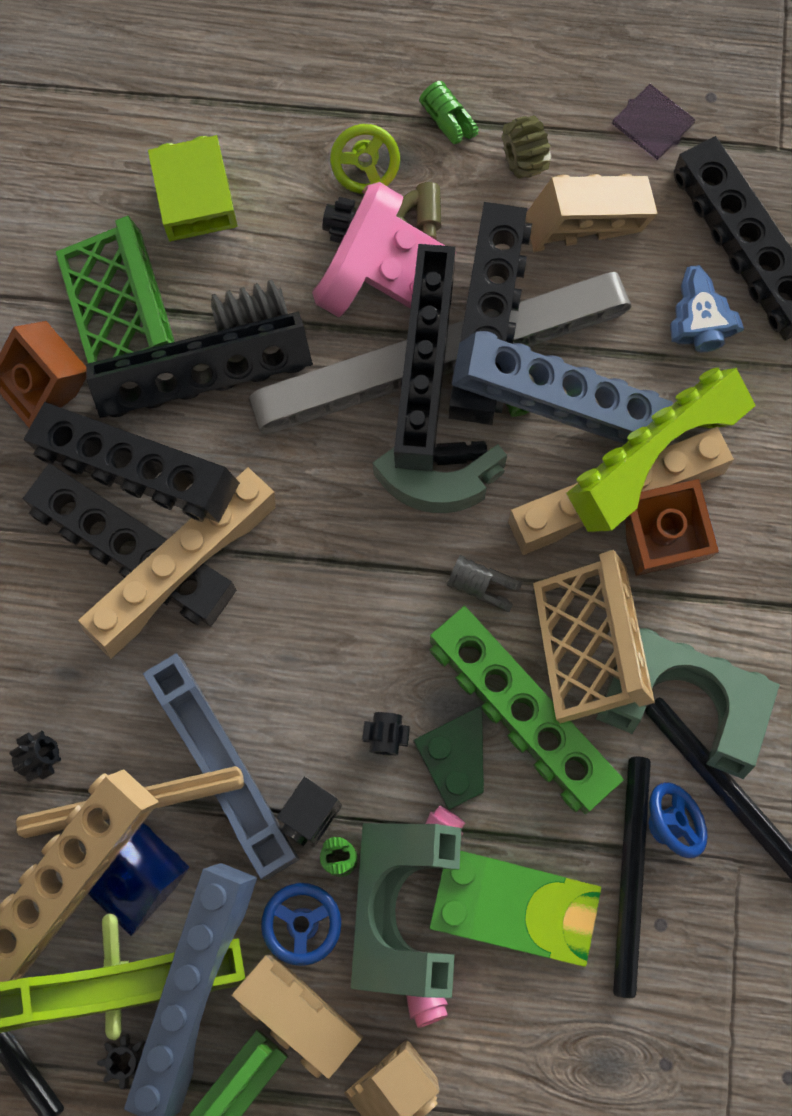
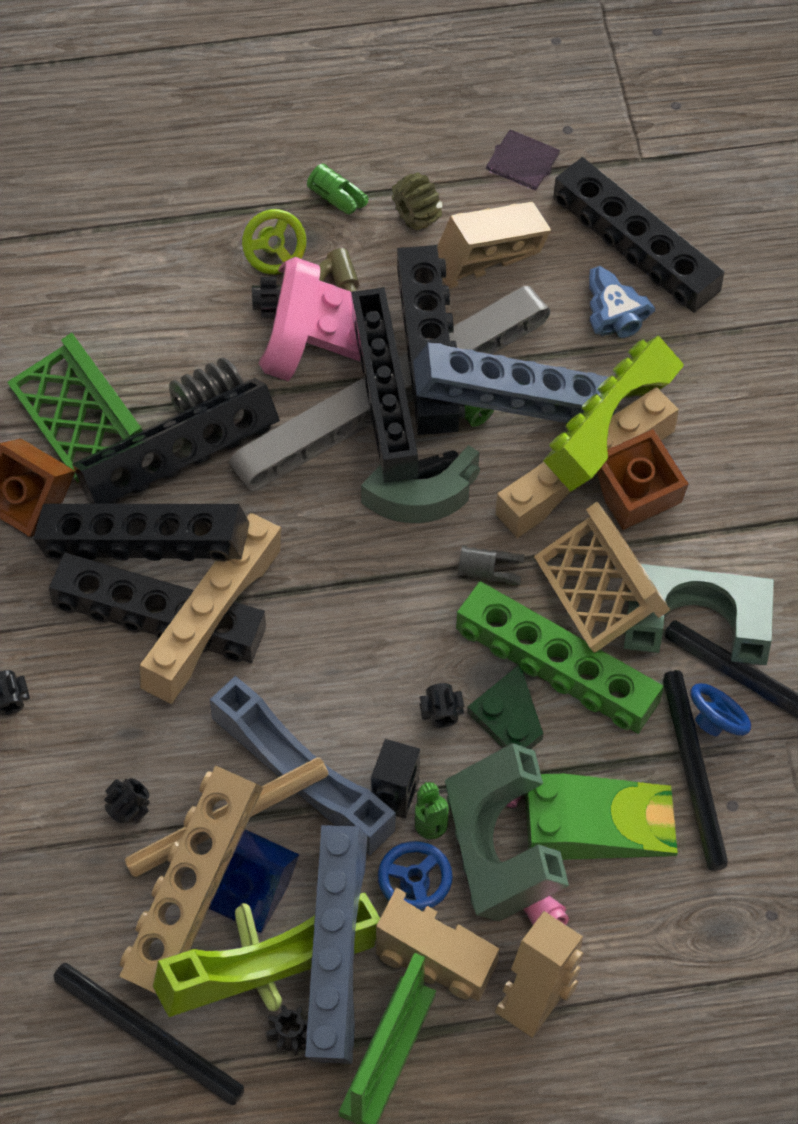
camera: 20 degrees left, 15 degrees down
(192, 188) = (123, 298): lime brick -> none

